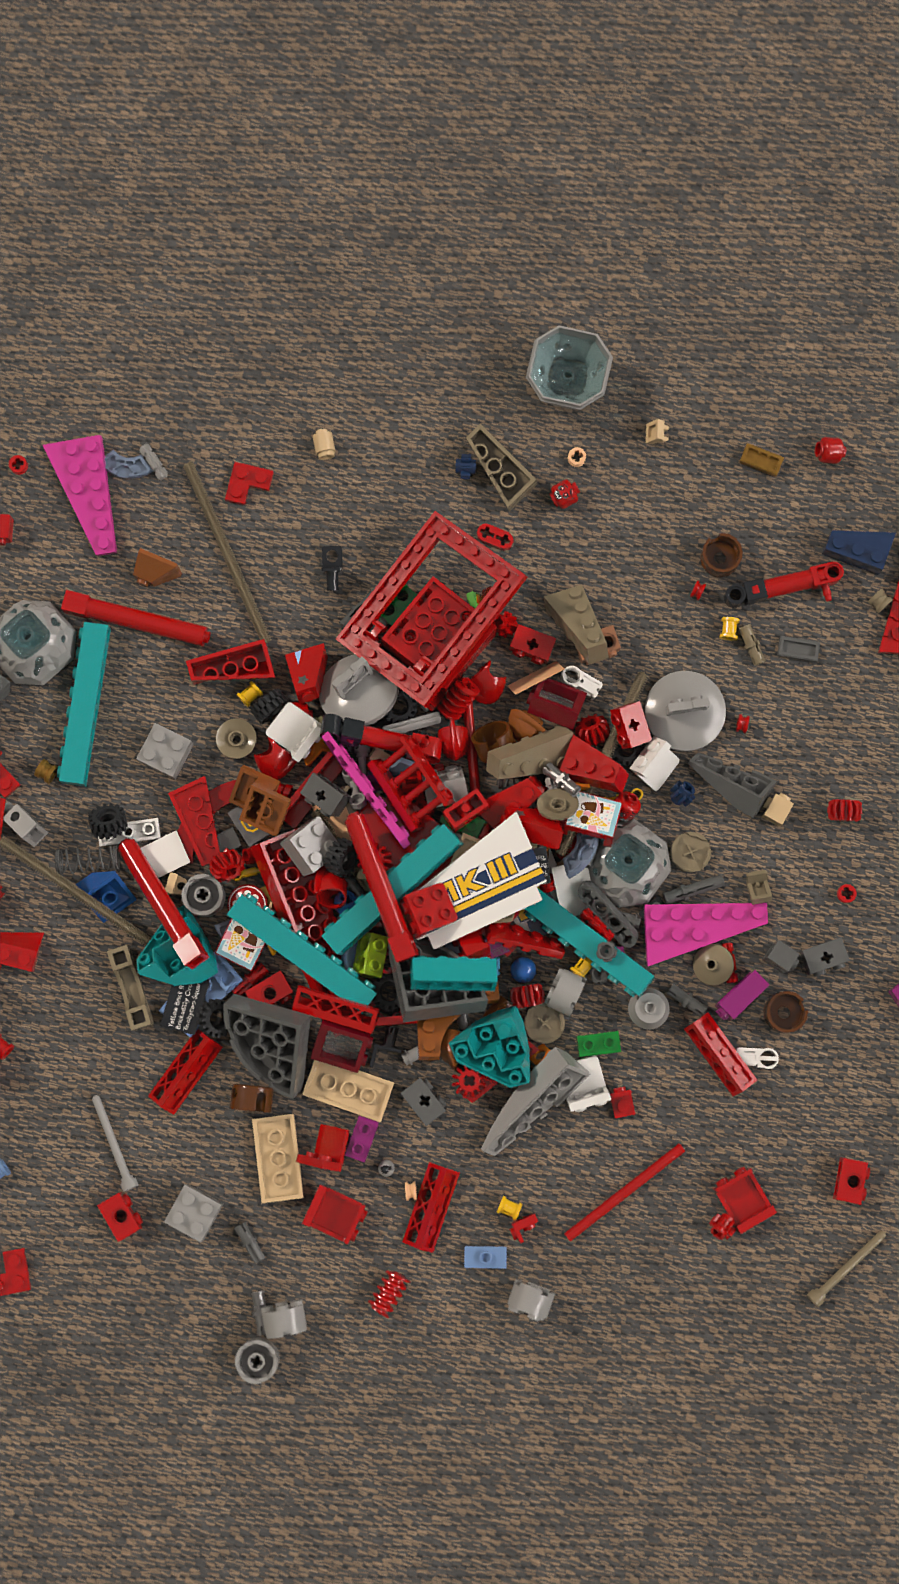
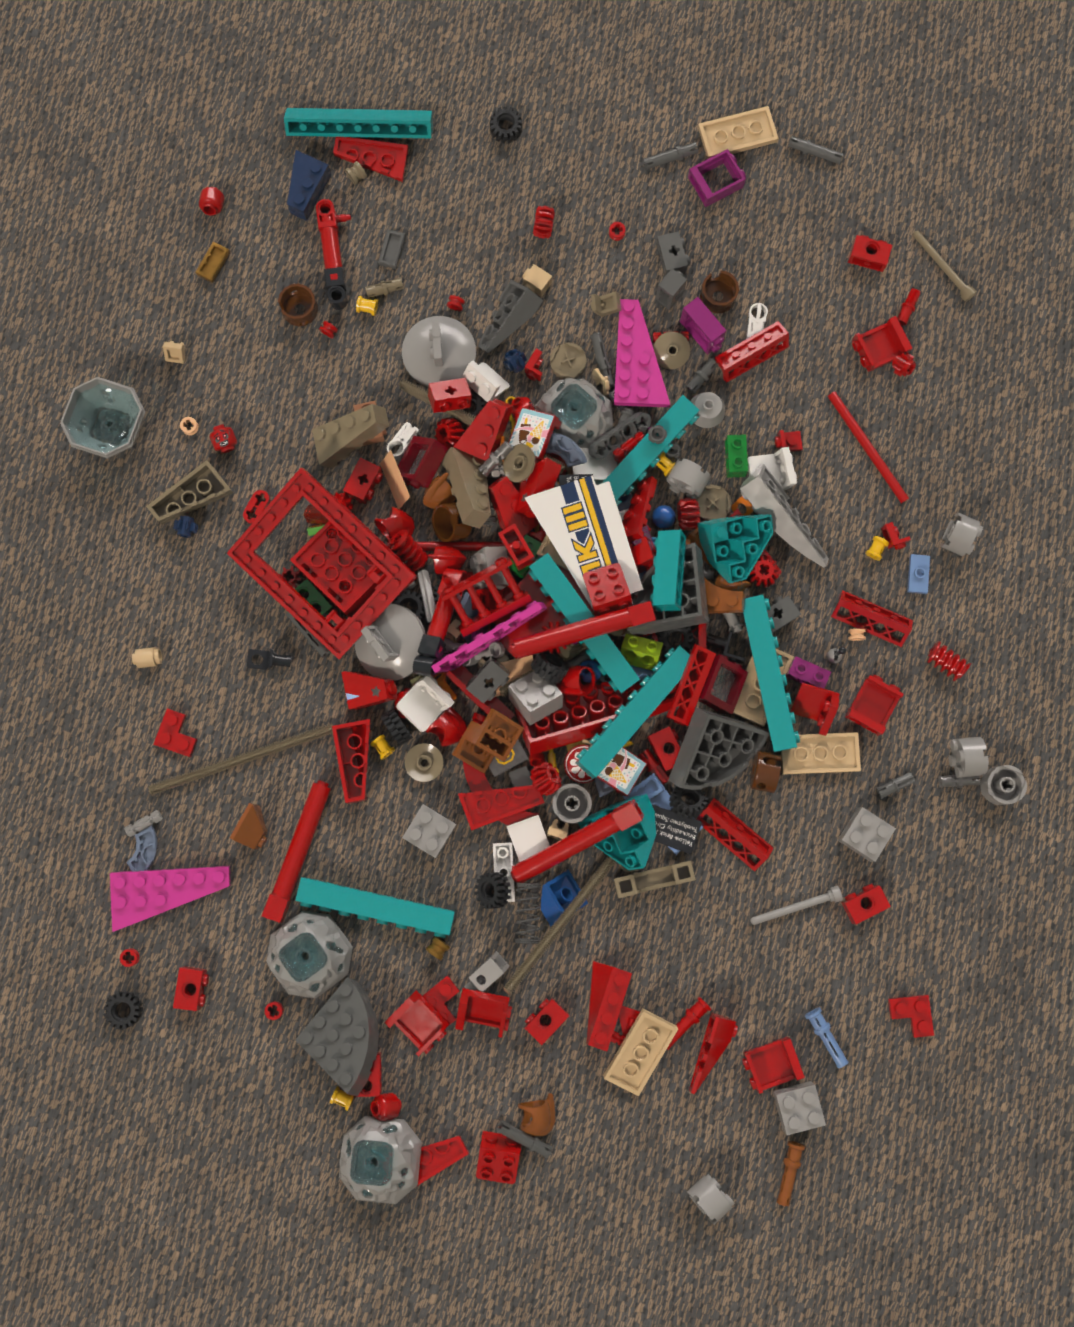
camera: 85 degrees left, 0 degrees up
(356, 1094) = (769, 673): none -> teal brick
(416, 576) = (288, 572): none -> red gear
(675, 883) = (599, 378): none -> tan piece
(683, 815) = (533, 364): none -> red bracket
(792, 1229) = (908, 306): none -> red axle

